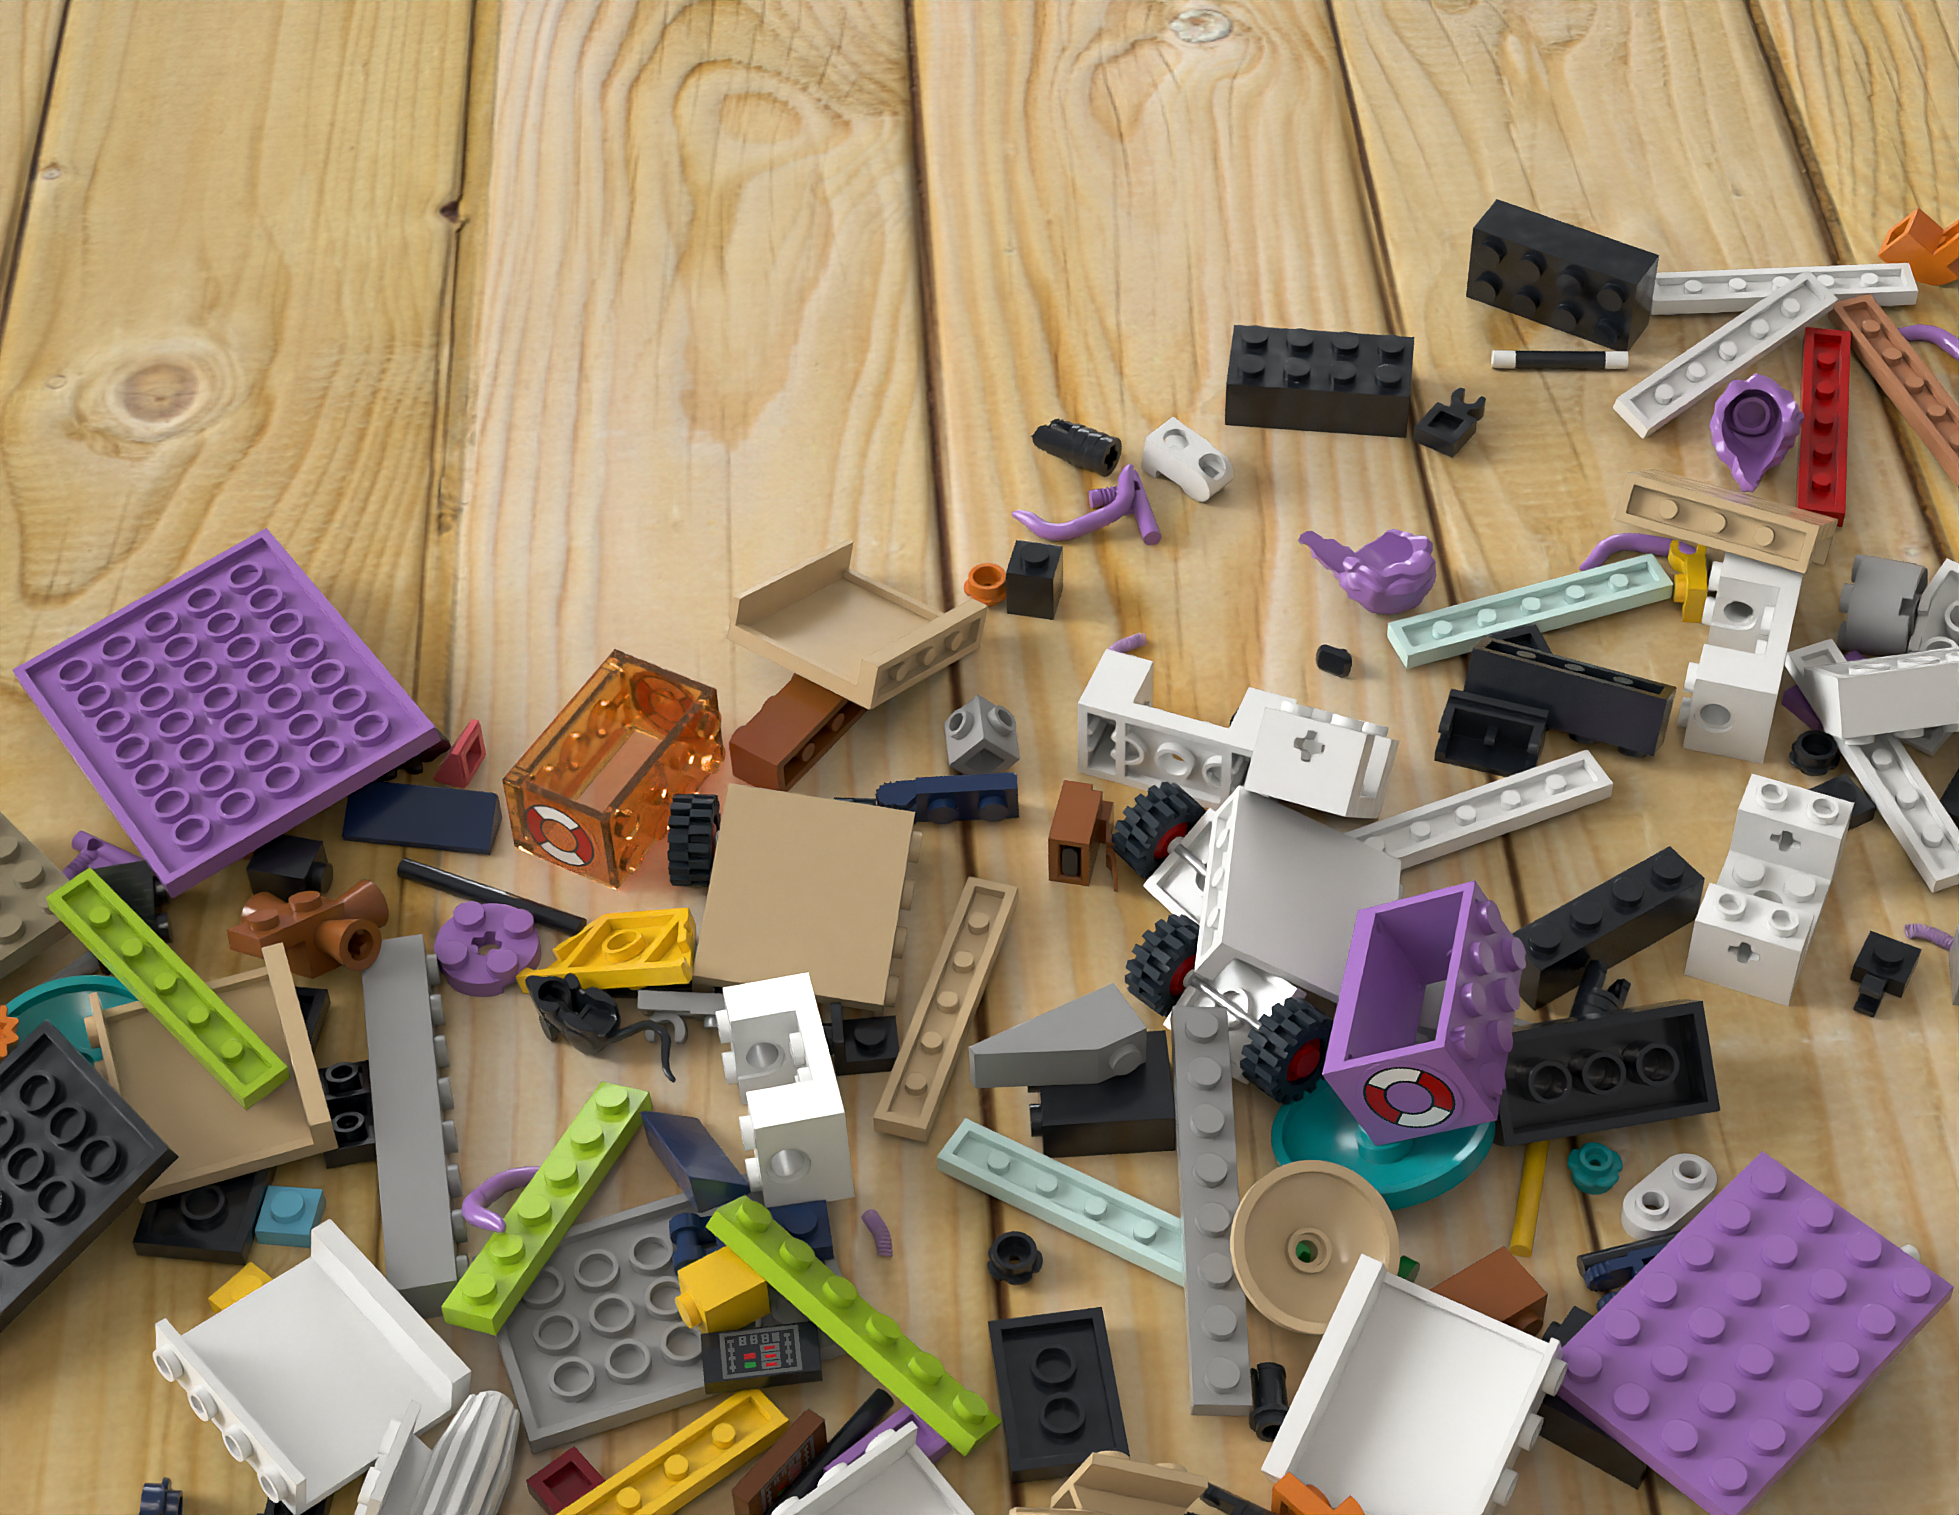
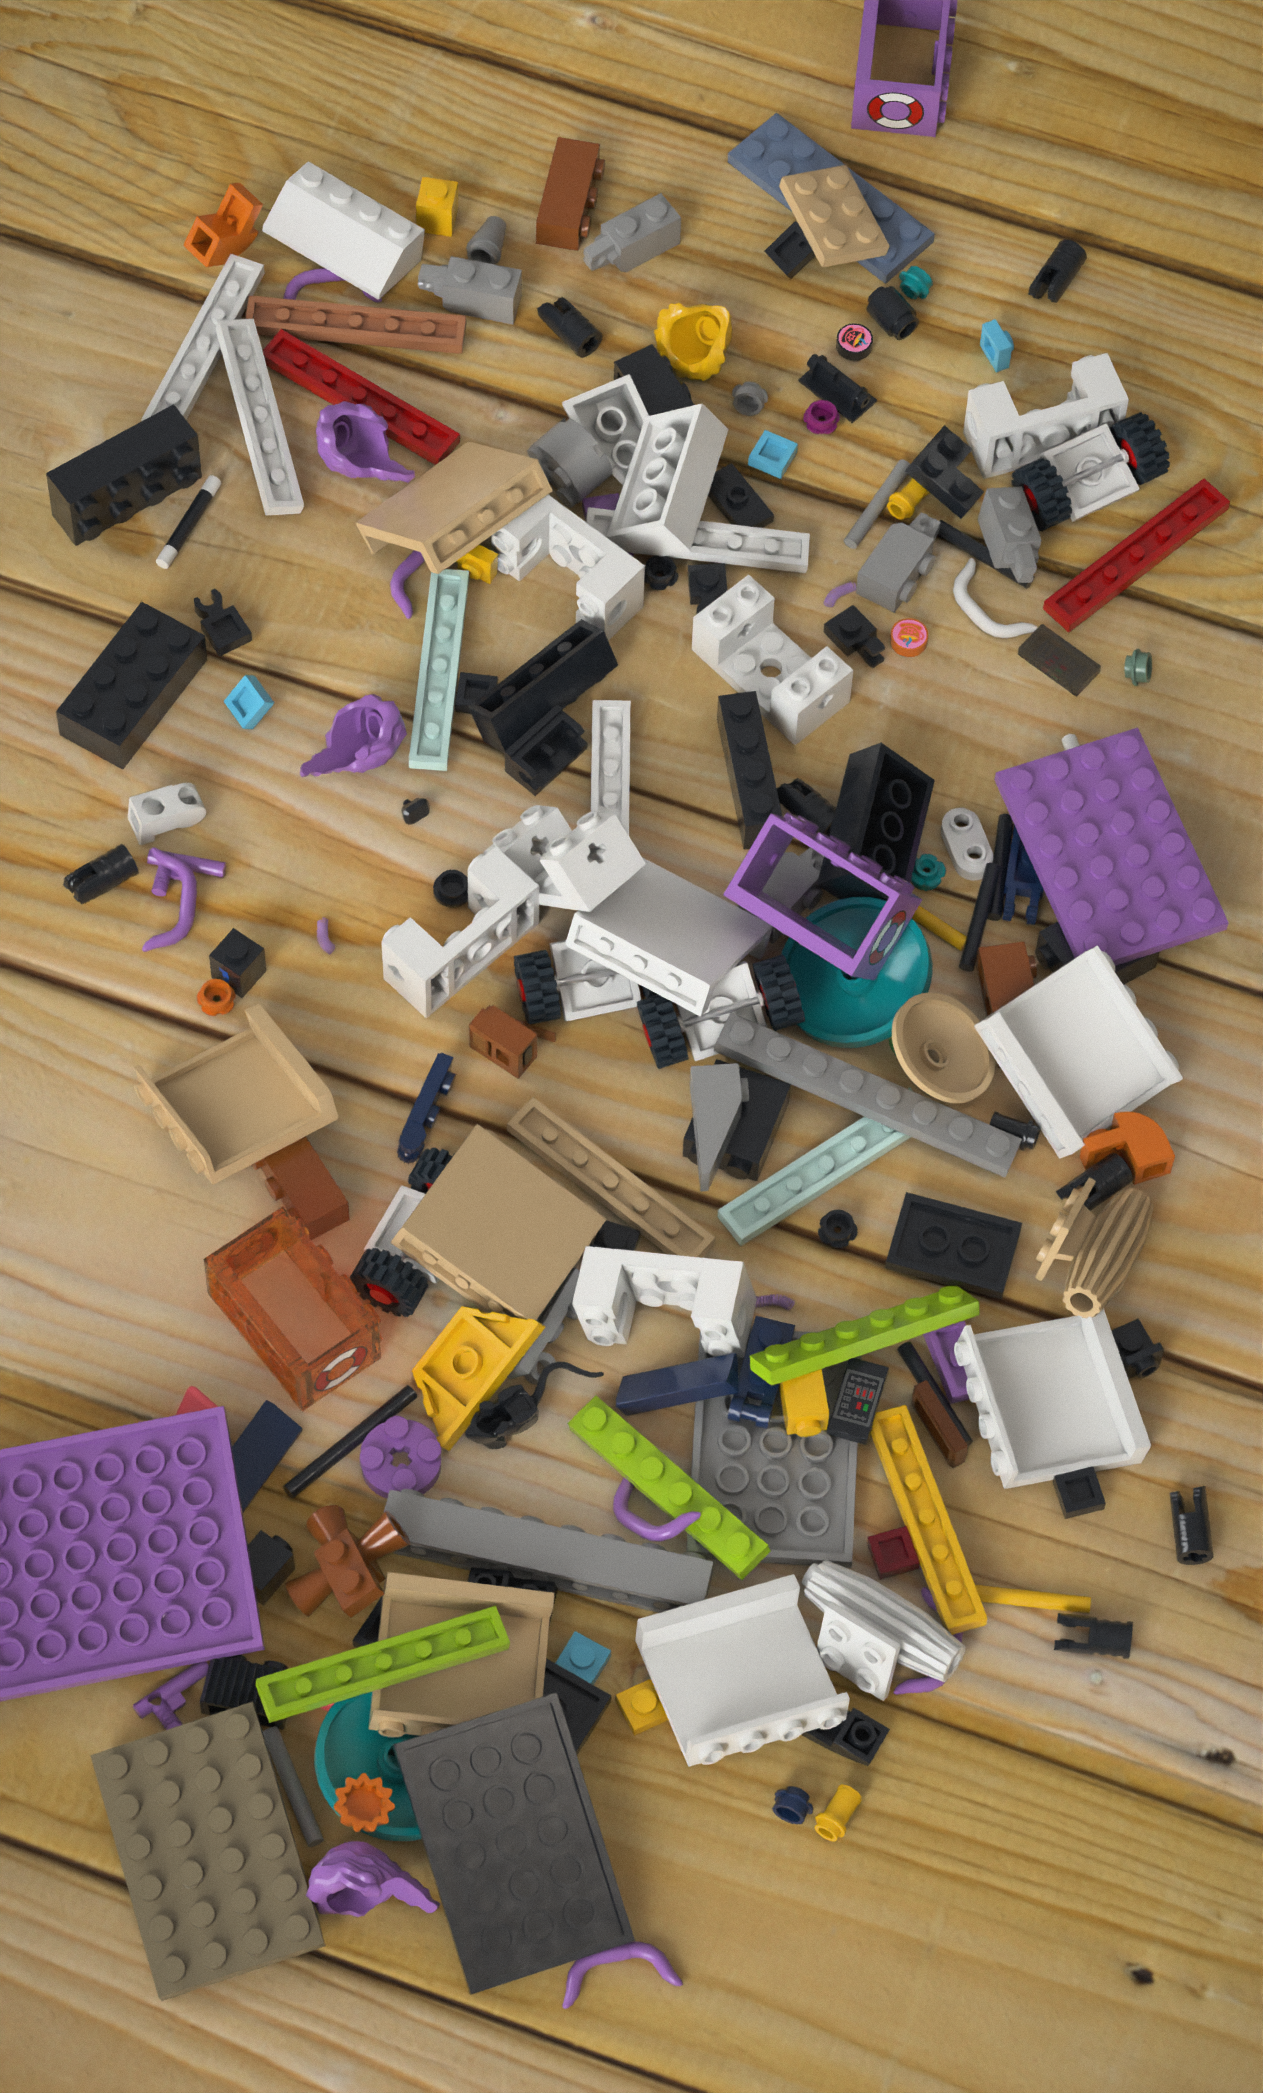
camera: 70 degrees left, 15 degrees up
(981, 738) = (383, 1062): light grey brick -> none
(1369, 476) = (249, 702): none -> medium azure plate
(1575, 1242) = (979, 917): none -> black bar
(1924, 1027) = (909, 637): none -> tile

